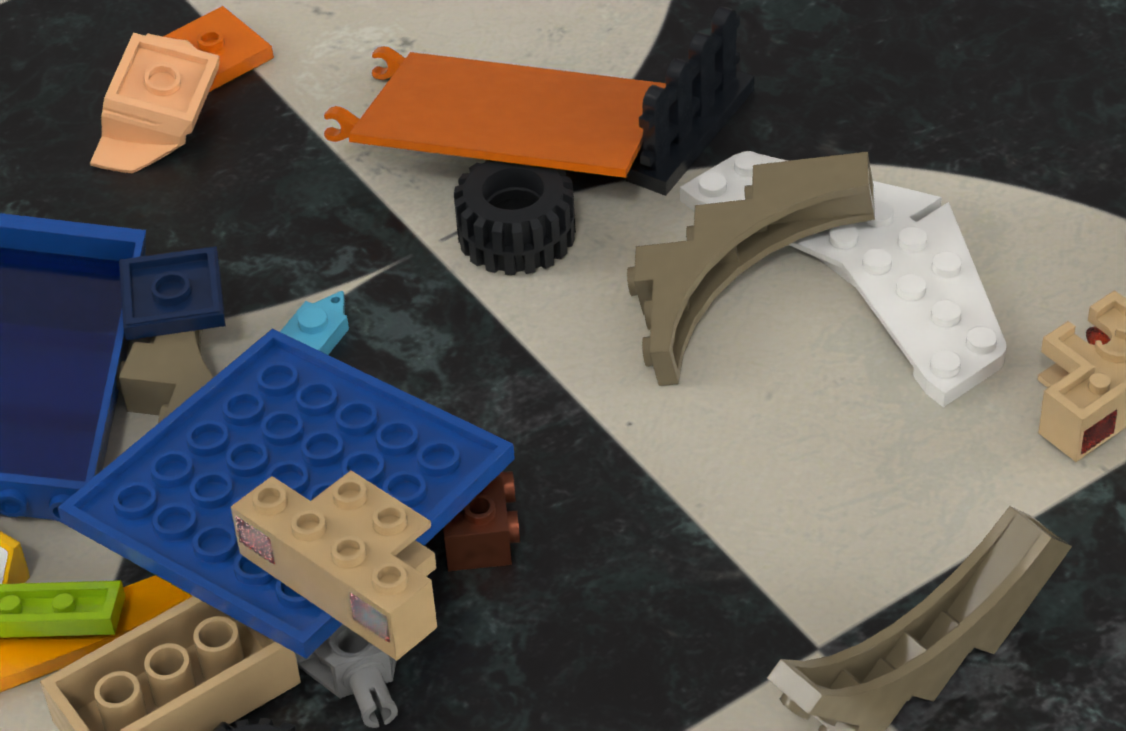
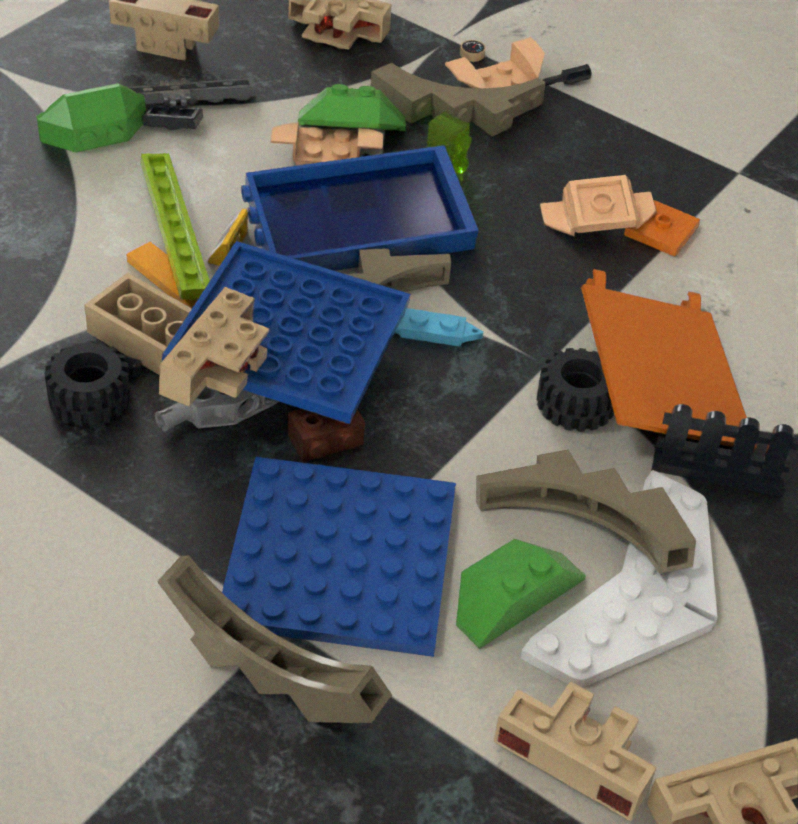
camera: 65 degrees right, 0 degrees up
(171, 293) = (429, 251): dark blue tile -> none
(708, 554) = (342, 555): none -> blue plate
(841, 379) = (510, 588): none -> bright green wedge

